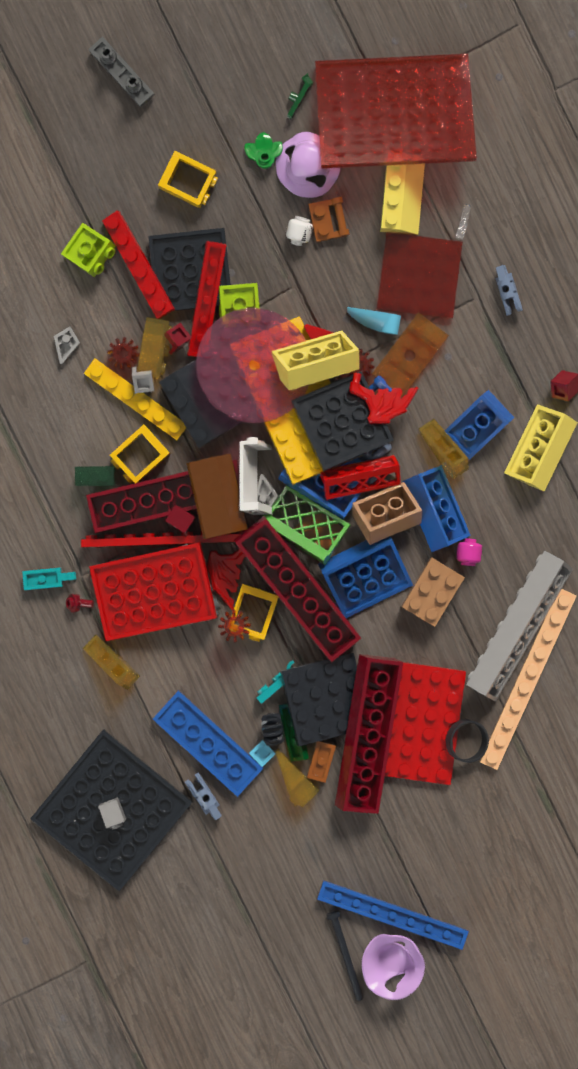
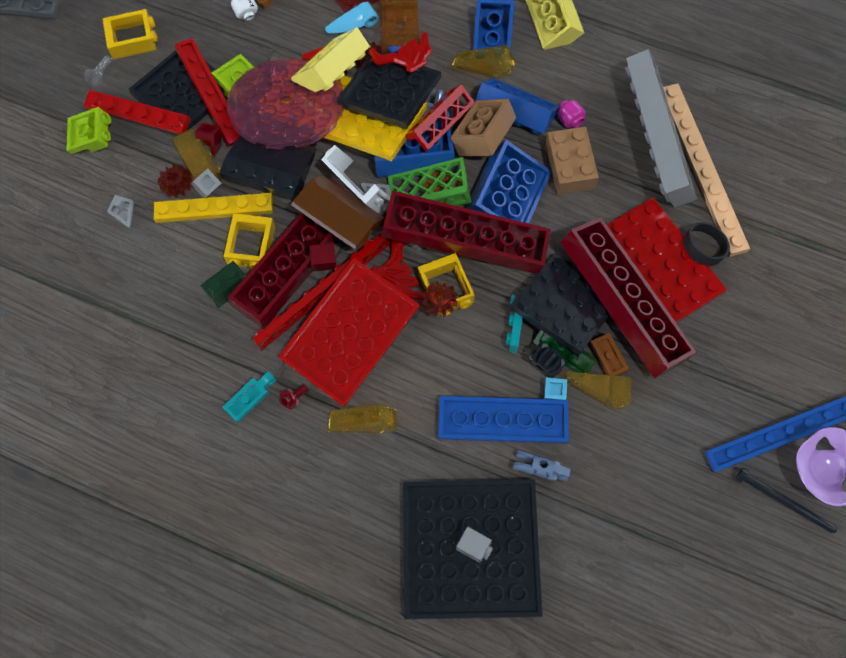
camera: 35 degrees left, 20 degrees down
(138, 192) = (97, 73): none -> clear bar

